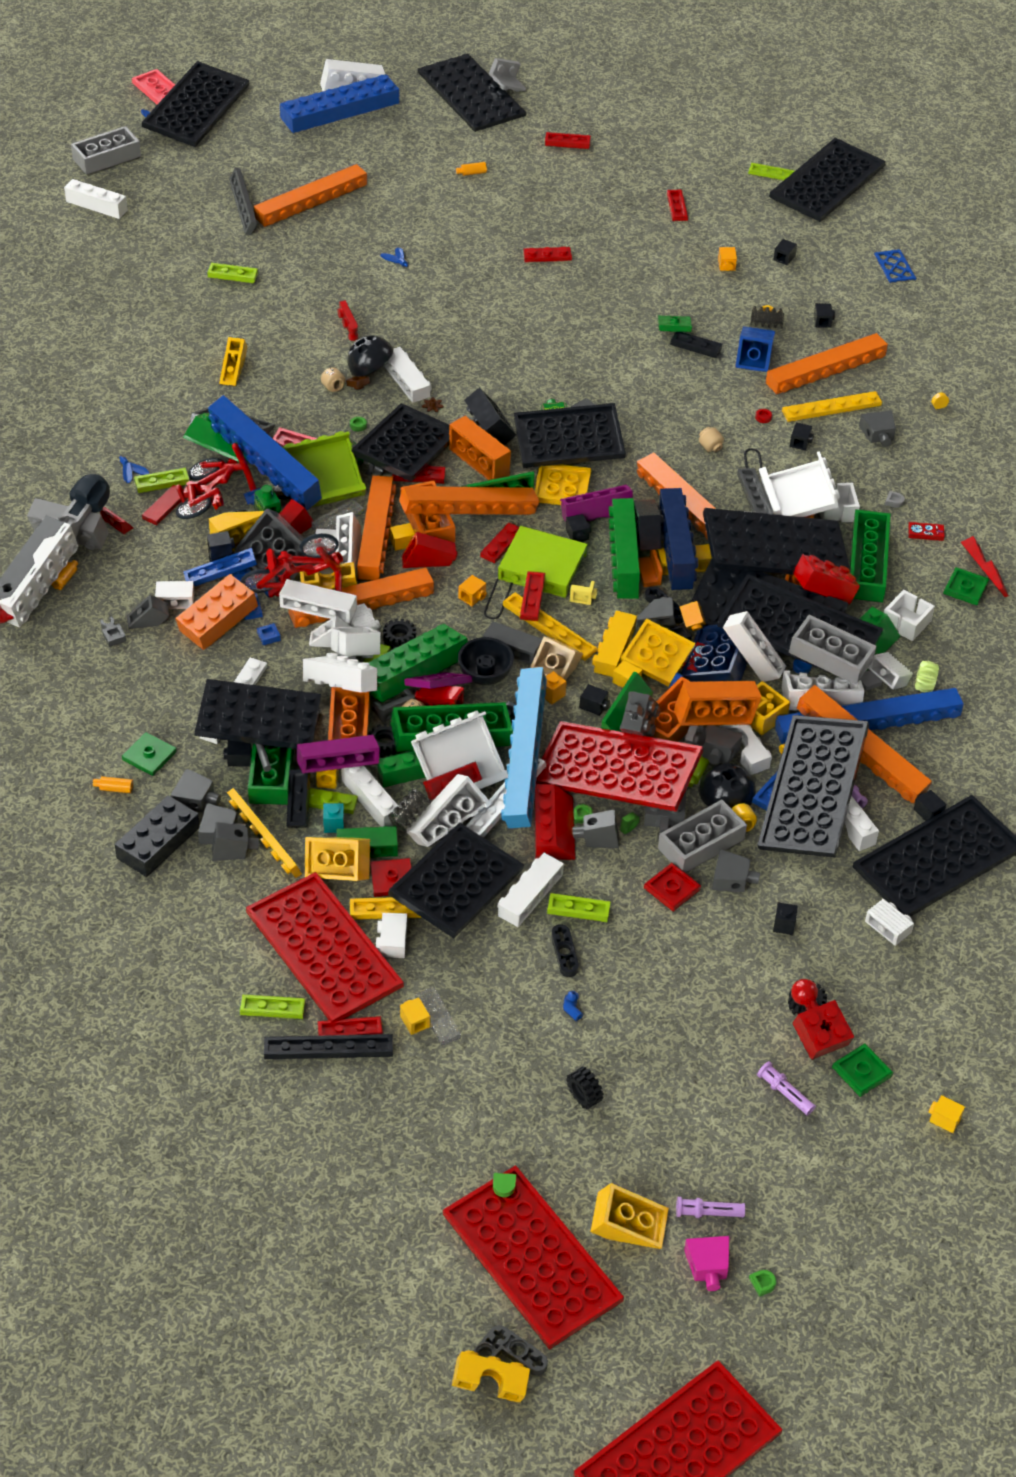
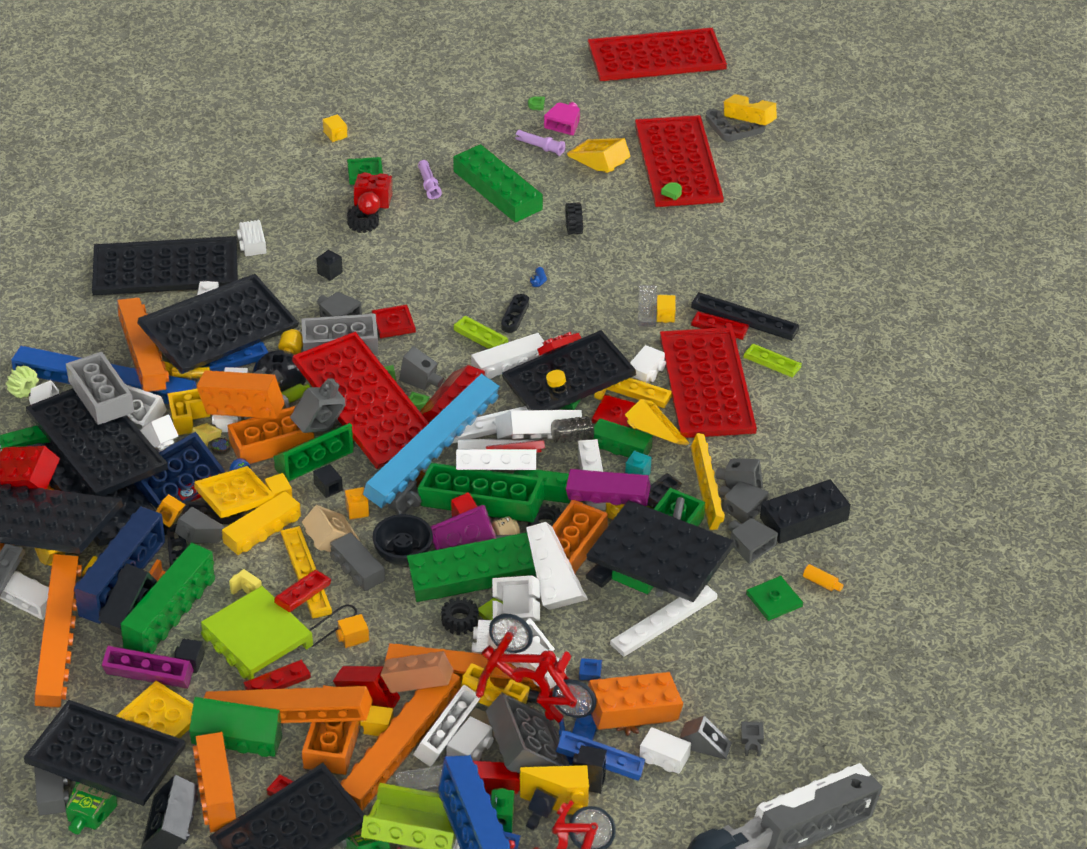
camera: 150 degrees left, 5 degrees down
(388, 547) = (417, 672): none -> nougat brick
(461, 858) = (556, 378): none -> yellow tile
(488, 909) = (557, 342): none -> red plate
(706, 1110) = (498, 183): none -> green brick
(929, 805) = (134, 290): black brick -> none

